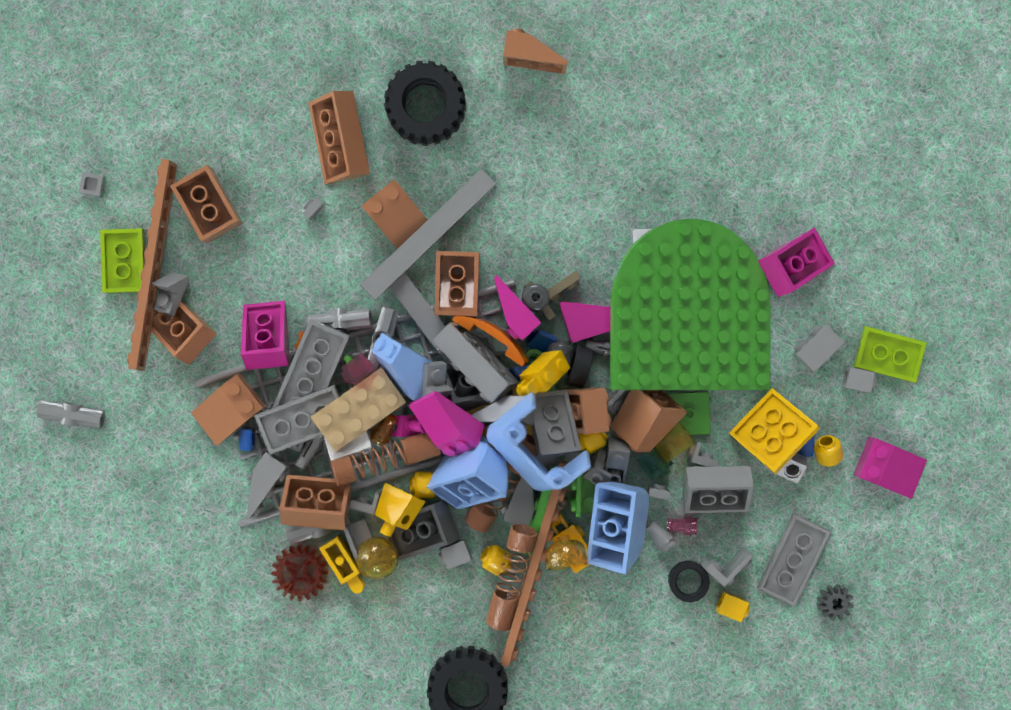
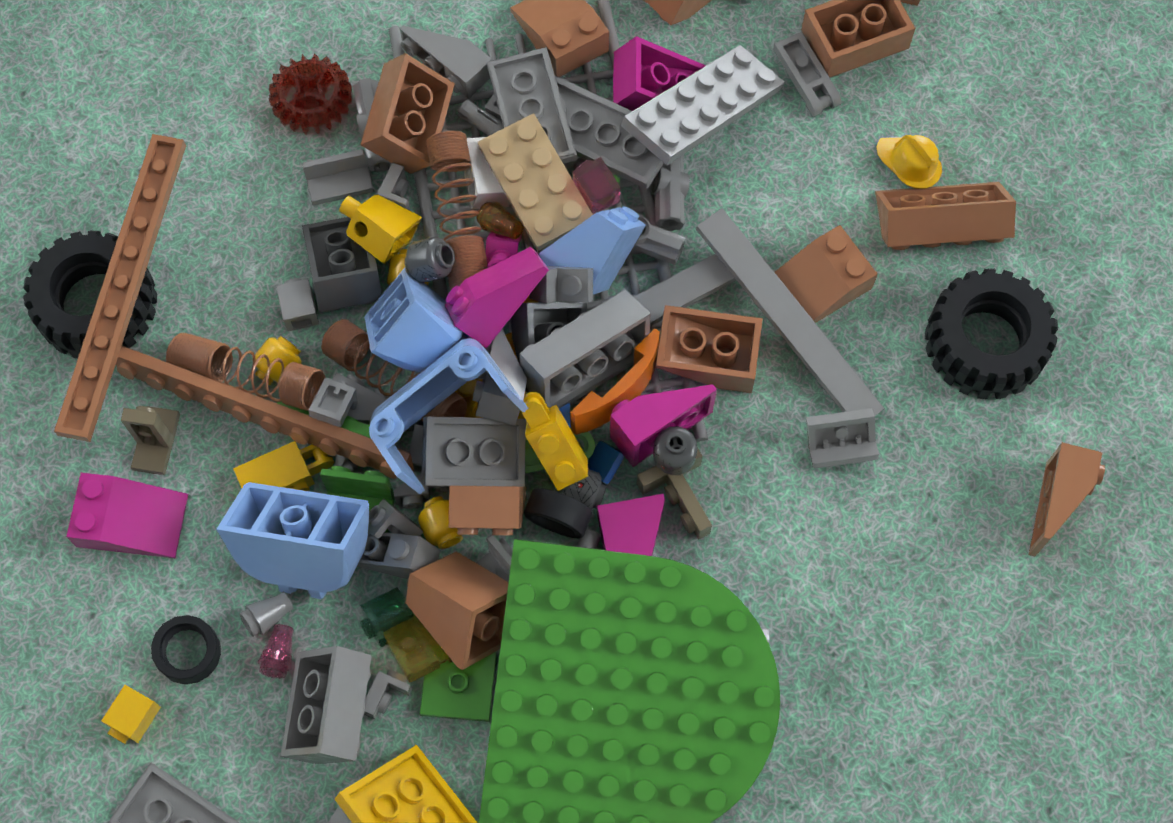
camera: 95 degrees right, 20 degrees down
(242, 236) = (807, 73): none -> light grey plate
(247, 439) = (512, 46): blue slope -> none
(283, 304) = (702, 104): none -> plate
(300, 162) = (911, 159): none -> yellow piece
(312, 208) = (840, 167): light grey plate -> none
(343, 563) = (309, 143): yellow brick -> none
(377, 558) = (311, 192): clear yellow cylinder -> none
(423, 471) = (429, 259): none -> dark grey head
(467, 667) = (120, 289): none -> nougat plate
(507, 193) = (842, 438): none -> light grey bracket
(529, 516) = (333, 402): none -> light grey bracket
(557, 628) = (154, 433): none -> dark tan bracket
(565, 554) = (266, 449): clear yellow cylinder -> none
(610, 634) = (126, 516): none -> dark pink slope
(658, 491) = (339, 617): light grey plate -> none
(727, 575) = (193, 687): light grey bracket -> none

